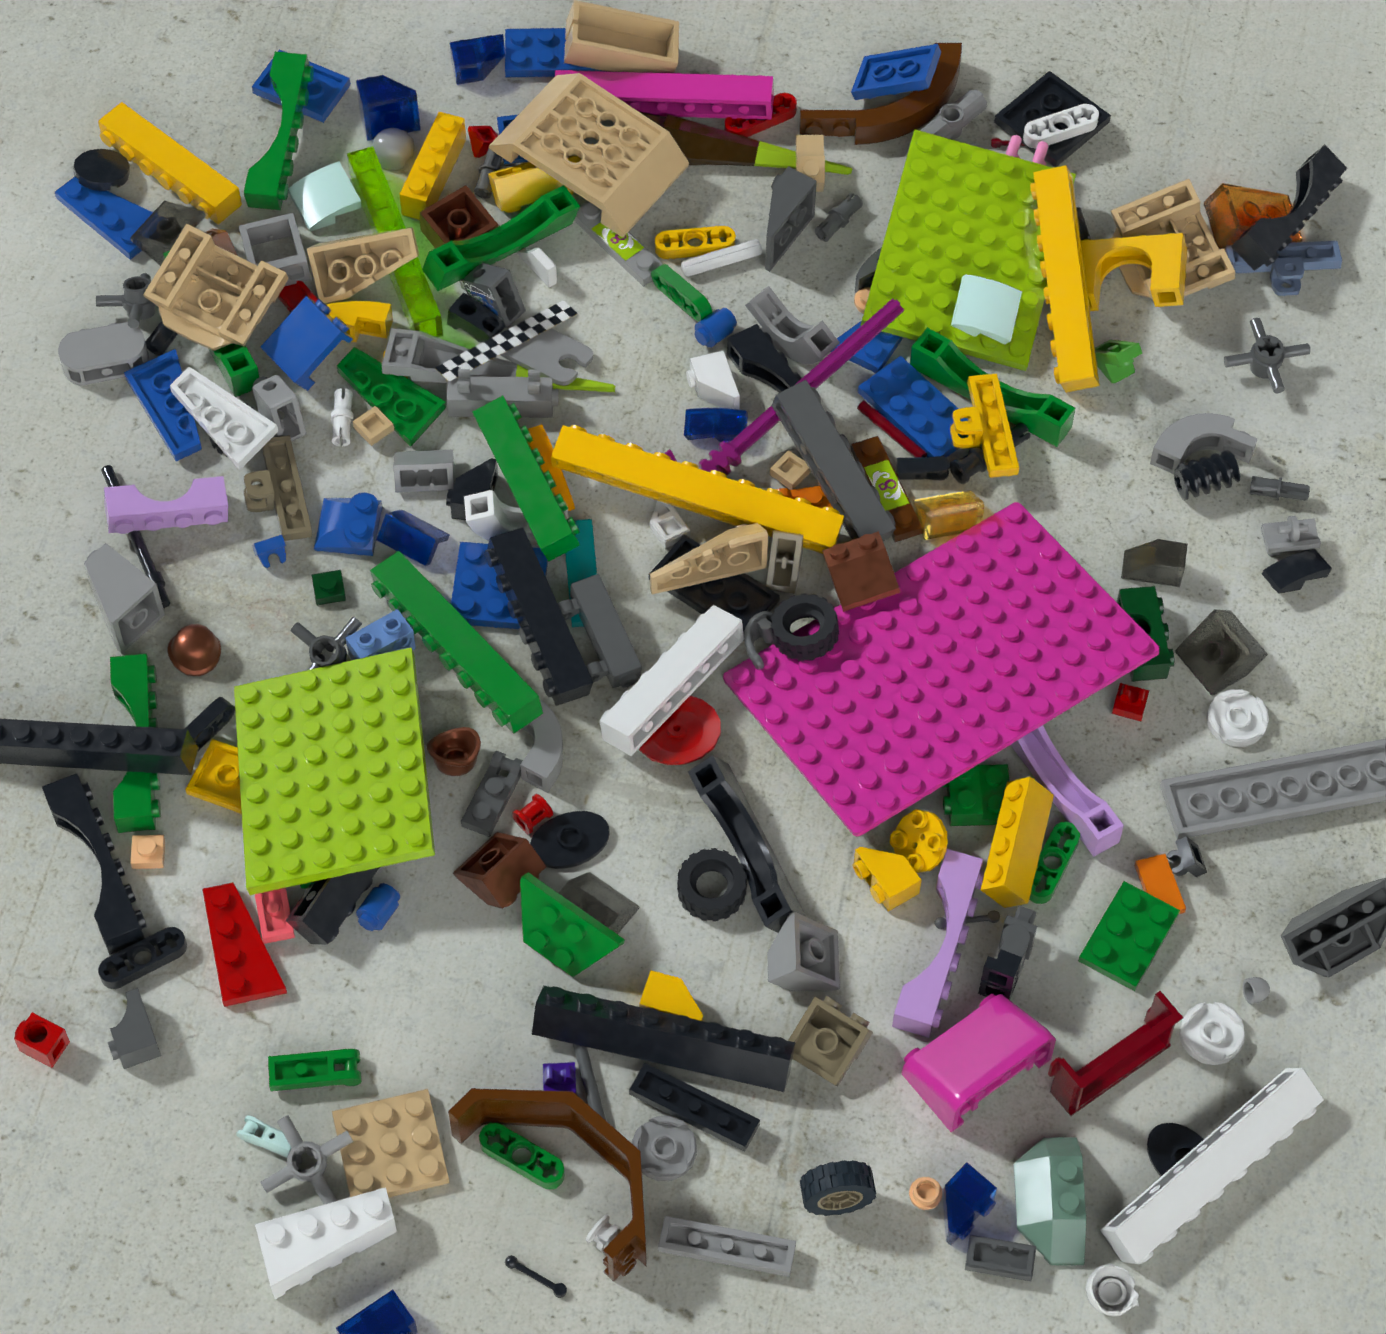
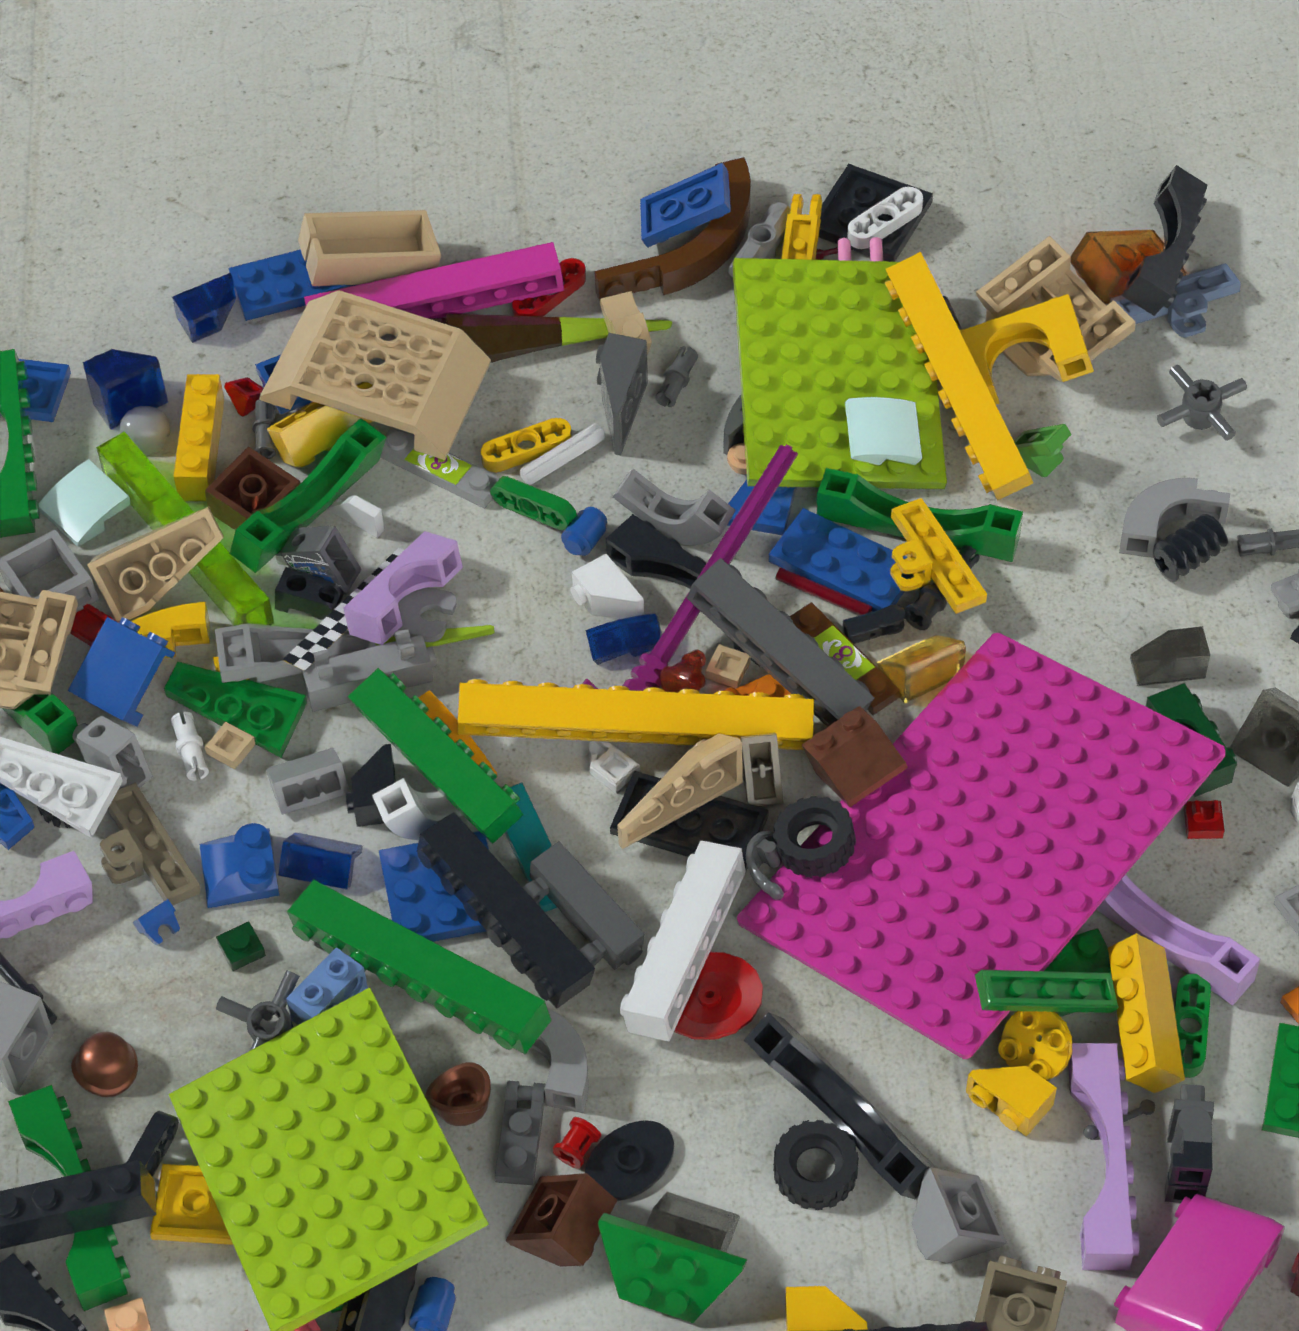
camera: 15 degrees left, 5 degrees down
(574, 320) = (423, 564): none -> lavender arch
(751, 467) = (685, 673): none -> clear red plate
(938, 801) = (1046, 991): none -> green tile
(987, 119) = (802, 229): none -> yellow hinge

